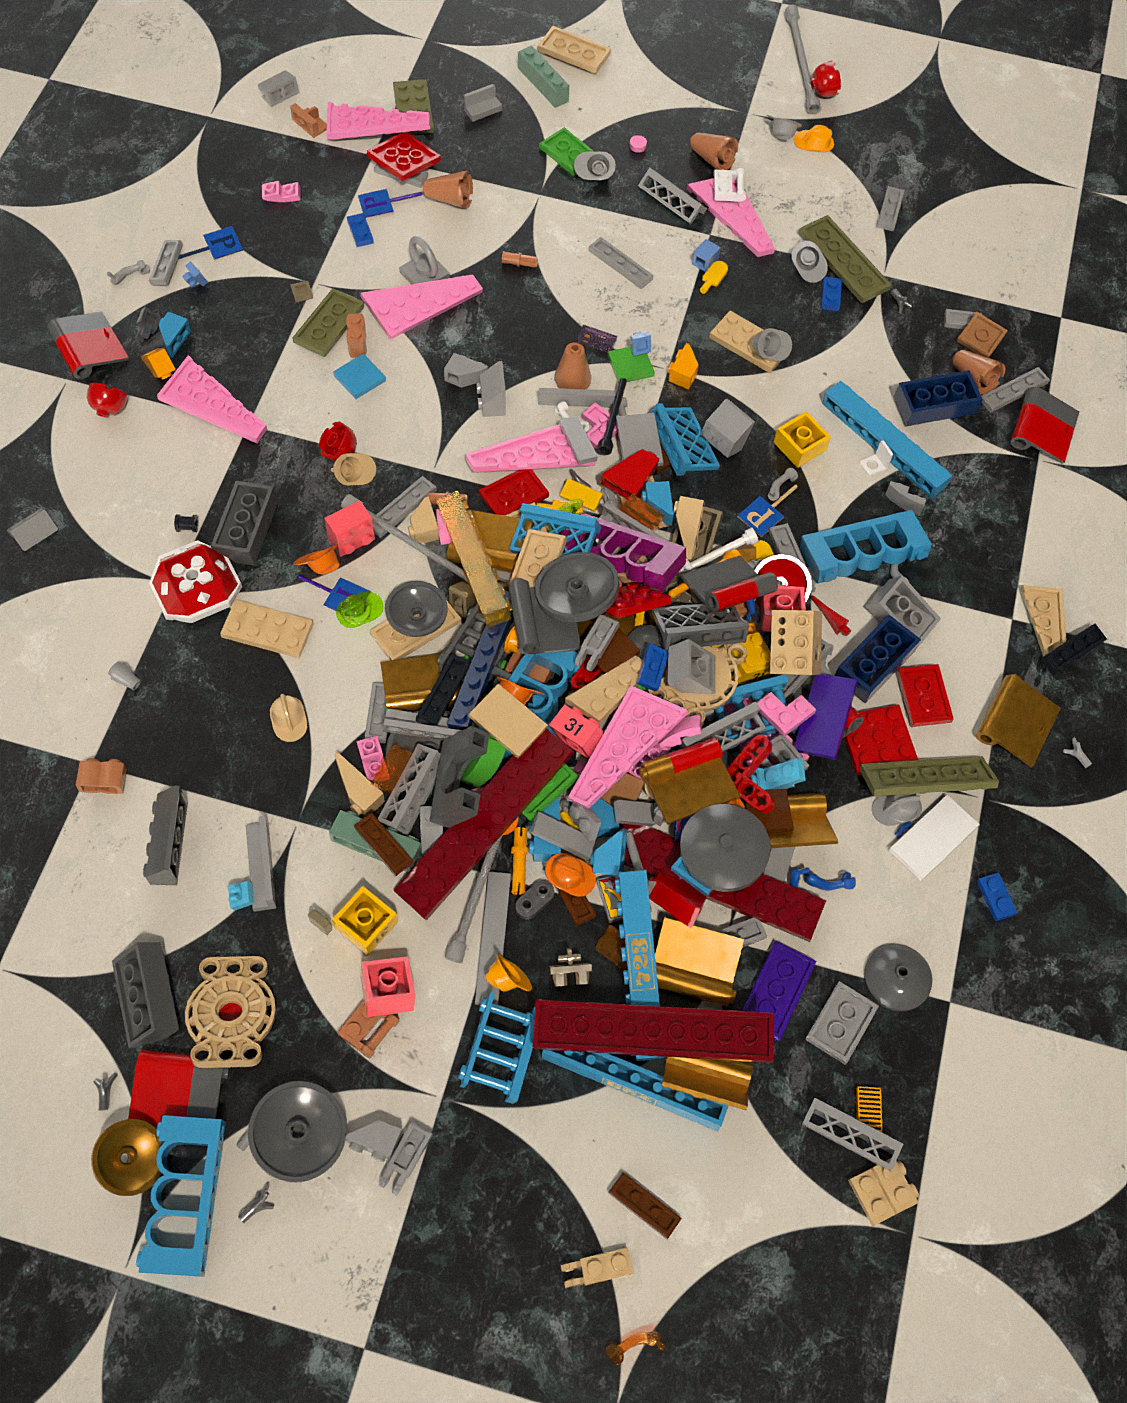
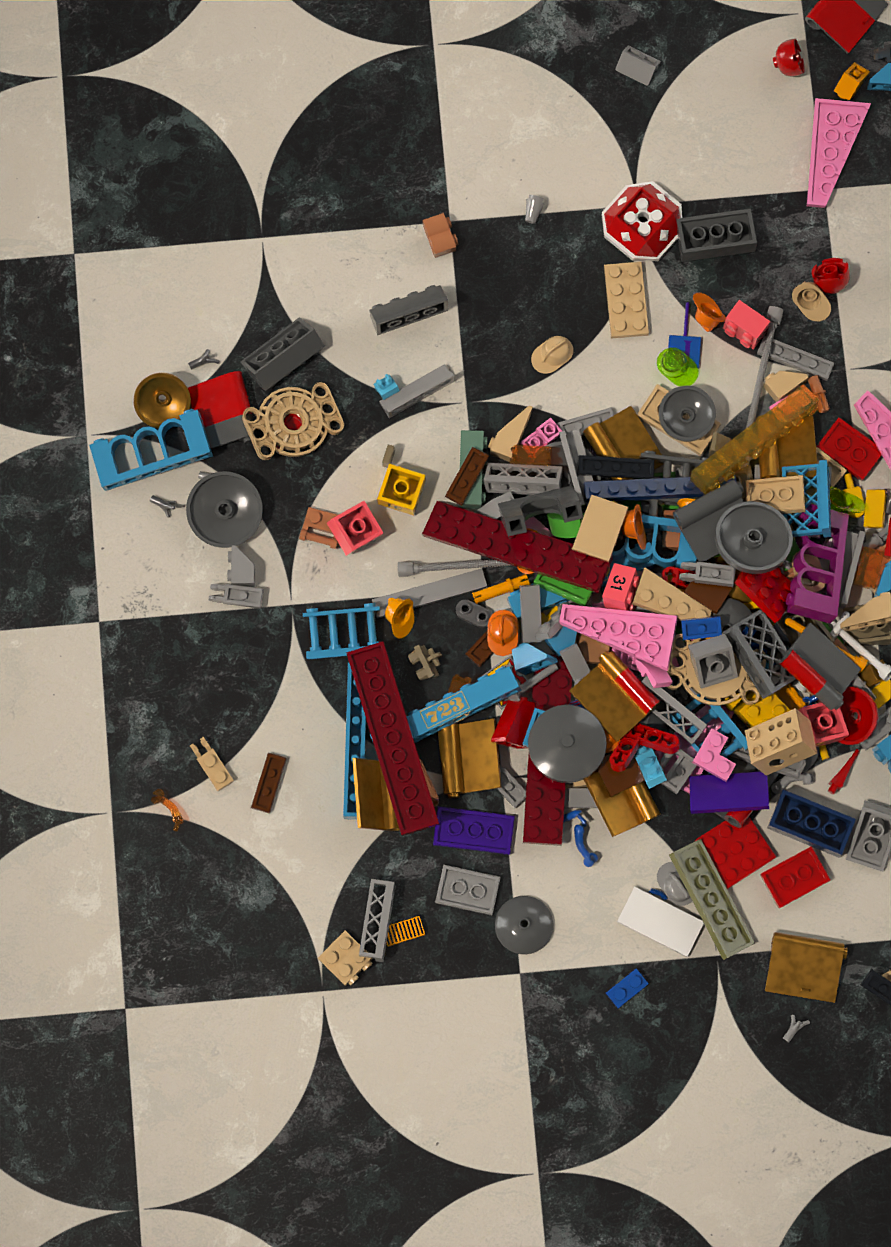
camera: 75 degrees right, 15 degrees up
(186, 523) = (696, 186): black bush -> none

